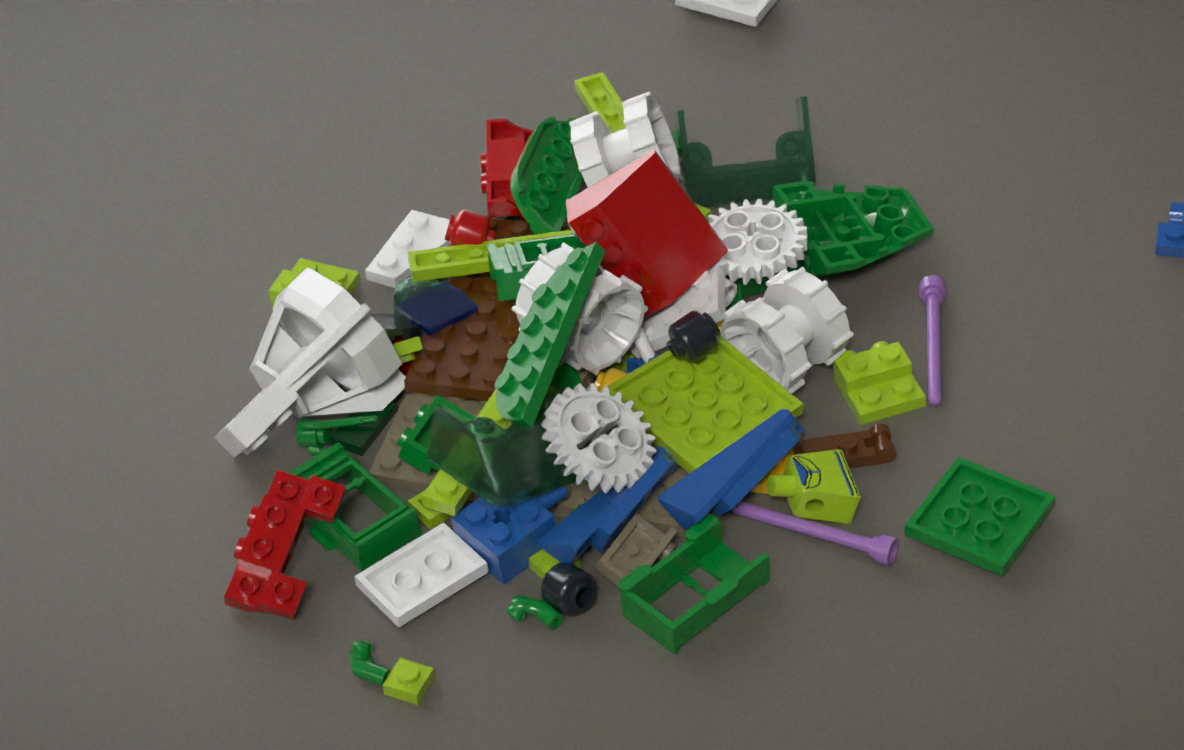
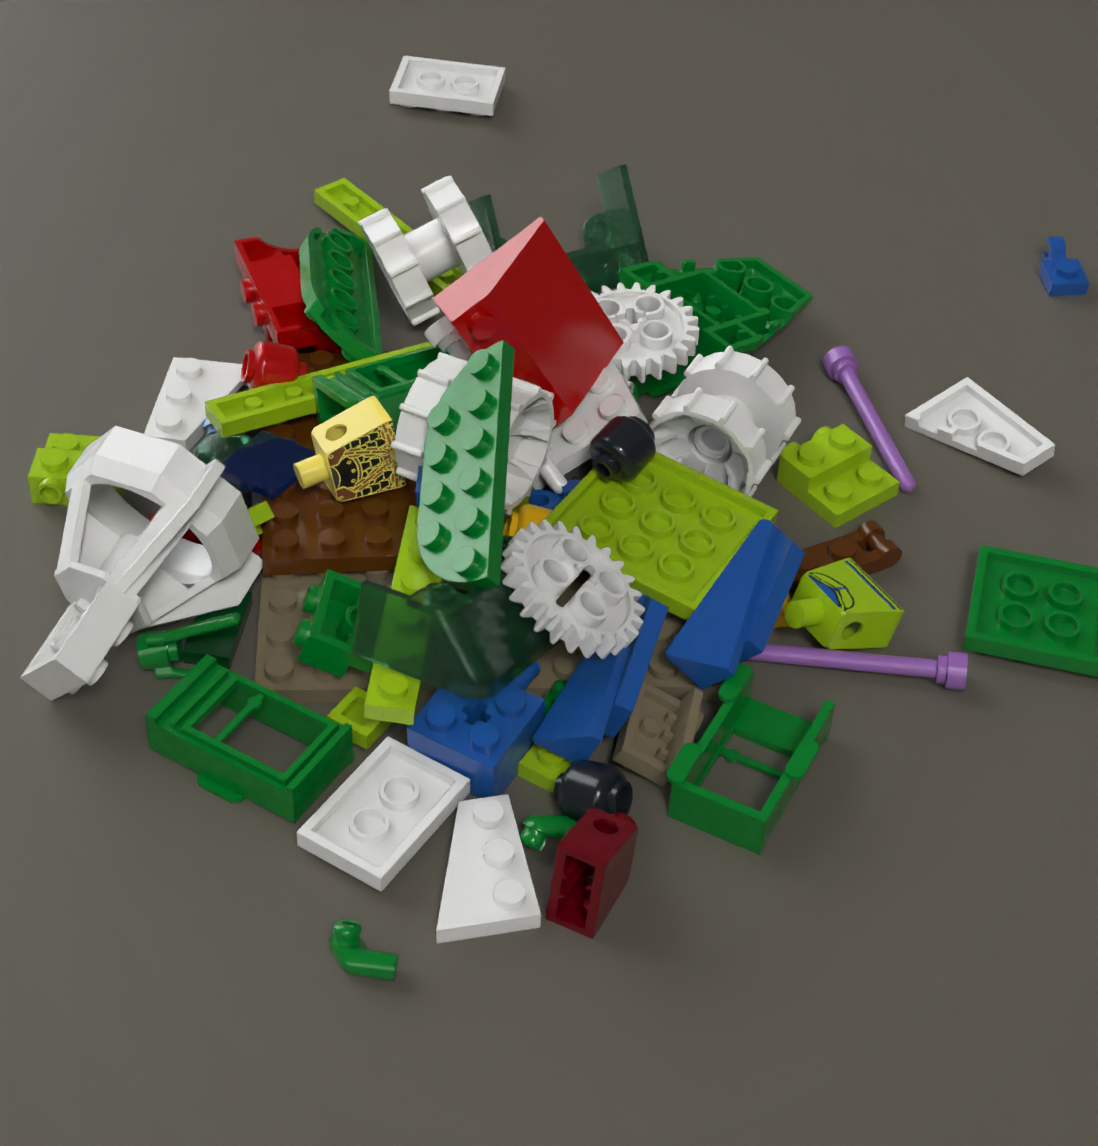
camera: 25 degrees left, 0 degrees up
(273, 535) = (161, 827): red bracket -> none
(409, 681) = (428, 965): lime plate -> none
(475, 629) = (486, 875): none -> white wing
(488, 309) = (353, 453): none -> light yellow torso
(540, 638) = (596, 847): none -> dark red torso
(1019, 361) = (981, 426): none -> white wing

